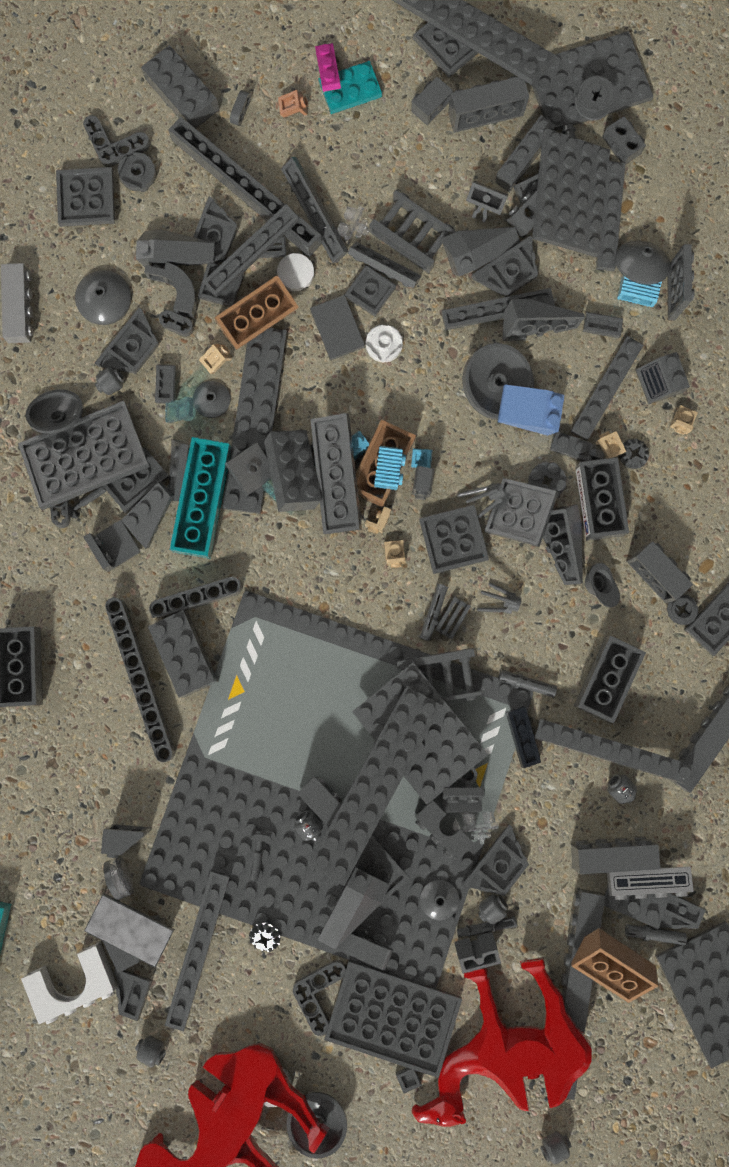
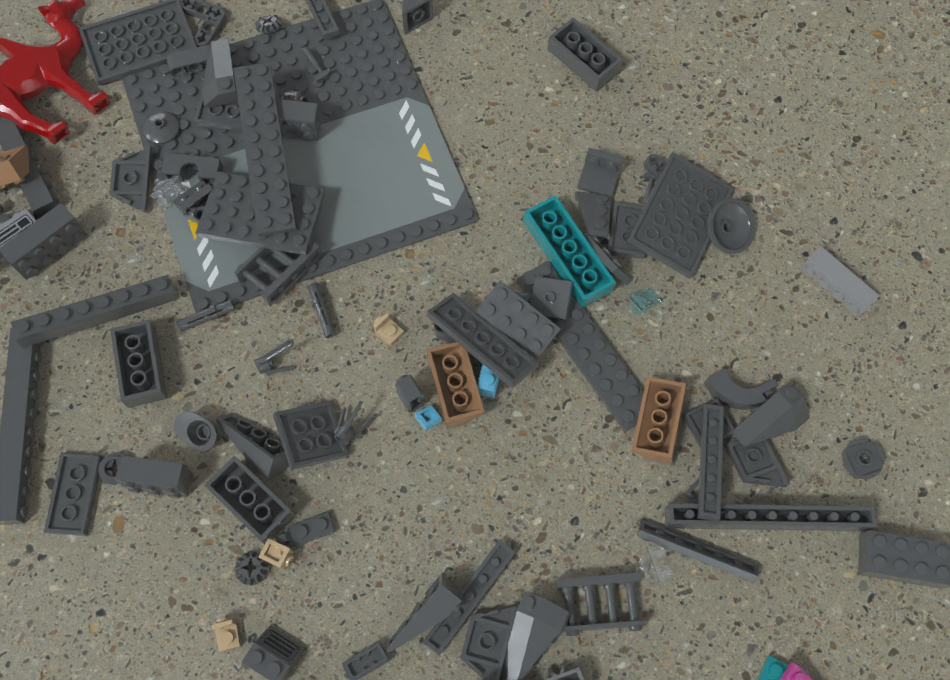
camera: 140 degrees right, 15 degrees down
(85, 196) = (878, 405): dark grey plate -> none
(108, 148) = (903, 461): dark grey beam -> none
(108, 306) = (781, 350): dark grey dish -> none
(109, 381) = (716, 281): dark grey head -> none
(130, 346) = (728, 321): dark grey wing -> none
(133, 672) = (442, 80): dark grey beam -> none
(165, 384) = (675, 313): dark grey plate -> none
(177, 319) = (712, 362): dark grey beam -> none
(183, 654) = (481, 142): dark grey brick -> none
(186, 597) = (504, 193): dark grey beam -> none
(215, 357) = (657, 363): tan bracket -> none
(215, 407) = (628, 340): dark grey dish -> none
(240, 107) = (842, 588): dark grey beam -> none
(292, 103) = (804, 632): nougat bracket -> none
(295, 272) = (663, 485): white tile -> none
(337, 327) = (588, 468): dark grey tile -> none
(370, 290) = (589, 520): dark grey plate -> none
(381, 518) = (418, 339): tan bracket -> none
(384, 343) = (539, 487): white tile -> none
(388, 468) = (444, 374): medium azure brick -> none
(389, 267) = (597, 552): dark grey plate -> none
(408, 1079) = (99, 14): dark grey tile -> none
(453, 539) = (350, 374): dark grey plate -> none
(461, 604) = (301, 304): dark grey tile -> none
(477, 953) = (106, 113): dark grey brick -> none
(487, 374) = (416, 528): dark grey dish -> none
(487, 927) = (111, 137): dark grey piece -> none
(493, 909) = (115, 147): dark grey head -> none
(523, 737) = (179, 273): black plate -> none
(531, 409) = (369, 526): medium blue slope -> none
(551, 471) = (311, 494): dark grey plate -> none
(606, 388) = (318, 608): dark grey plate -> none
(622, 789) = (70, 293): dark grey head -> none

